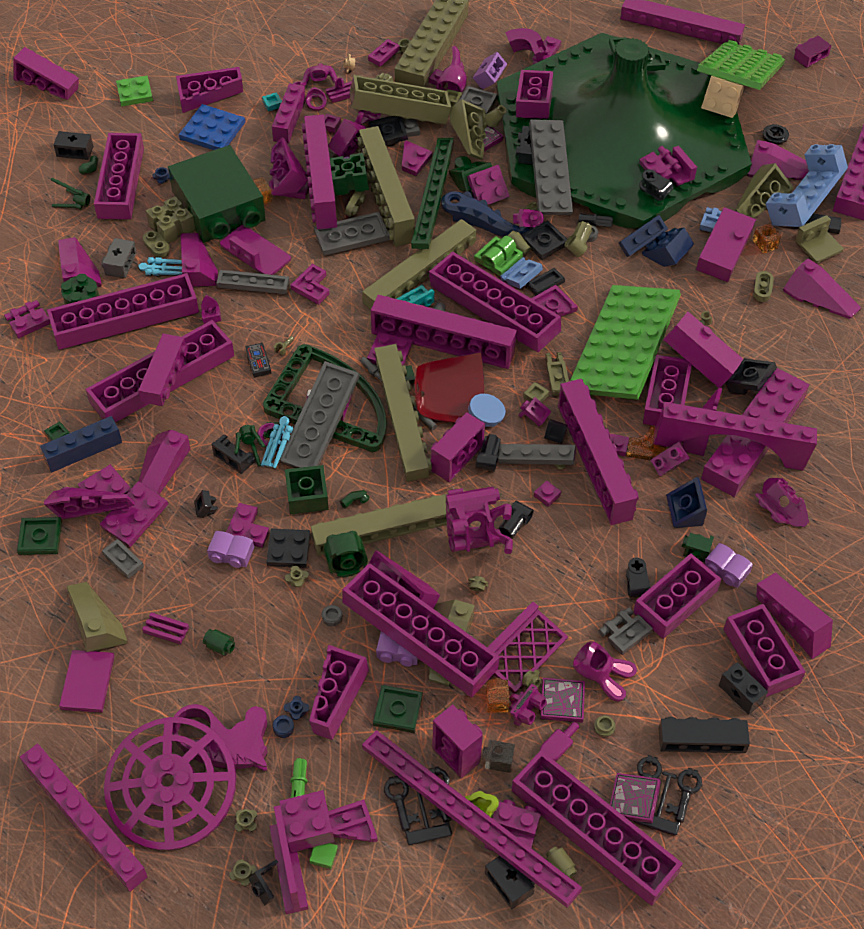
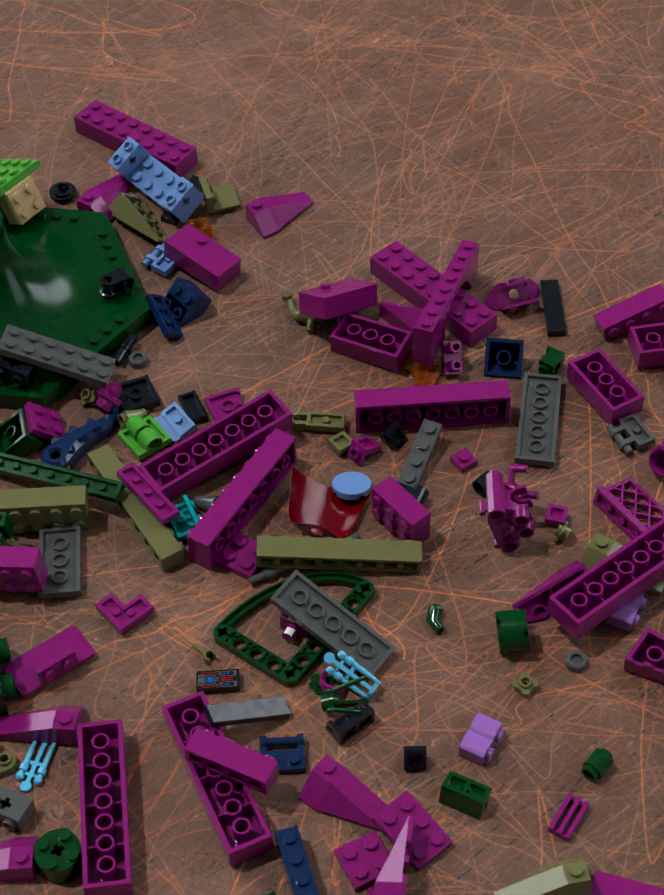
camera: 75 degrees left, 5 degrees down
(122, 558) = (471, 848): dark grey plate -> none
(172, 544) = (464, 794): none -> dark green hinge
(189, 417) = (289, 761): none -> dark blue plate
(210, 310) = (134, 716): magenta plate -> none
(222, 378) = (247, 711): none -> tile
(243, 525) = (451, 728): magenta plate -> none
(253, 282) = (99, 669): dark grey plate -> none
(288, 548) = (485, 688): black plate -> none
(306, 489) = (421, 654): dark green brick -> none
(385, 522) = (475, 593): olive brick -> none
(423, 264) = (148, 493): none -> magenta plate
(498, 576) = (556, 515): none -> magenta plate
(577, 242) = (149, 364): olive piece -> none
(618, 546) = (538, 419): none -> dark grey plate
(626, 340) = (299, 358): bright green plate -> none
(637, 578) = (580, 412): black piece -> none
(655, 163) = (86, 278): magenta plate -> none
(688, 167) = (95, 259): magenta panel -> none
(728, 565) = (575, 345): medium lavender brick -> none
(750, 376) = (375, 271): black plate -> none
(763, 286) = (258, 247): olive plate -> none
(783, 541) = (552, 308): none -> black tile

